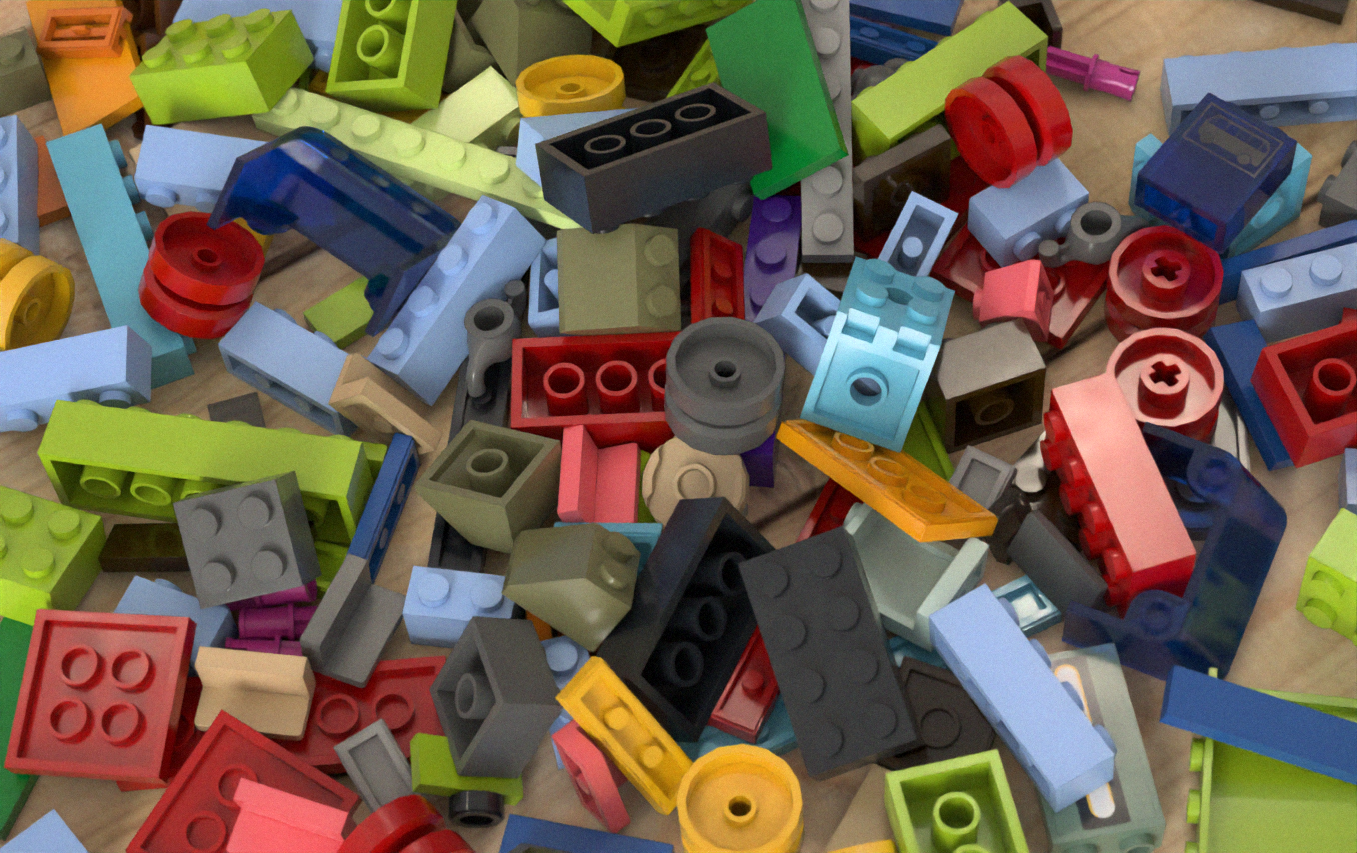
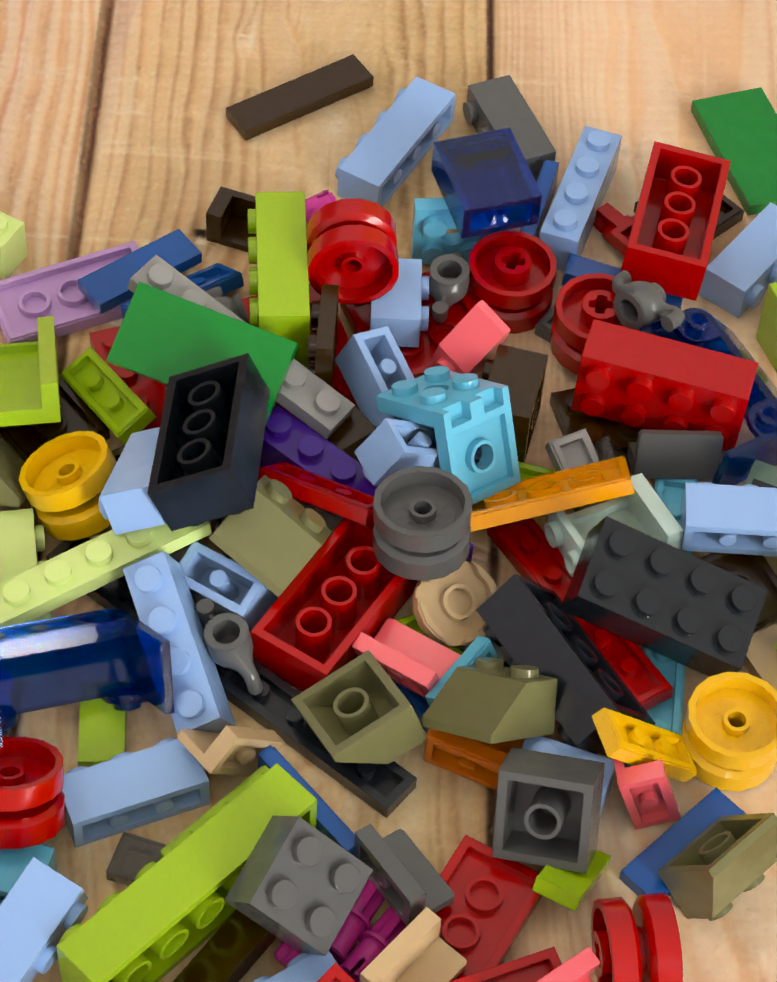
camera: 65 degrees left, 5 degrees down
(377, 765) = (538, 926): light grey tile -> none
(445, 601) = (439, 799): light blue brick -> none
(476, 809) = (604, 885): black tile -> none
(1188, 404) = (643, 304): none -> dark grey piece

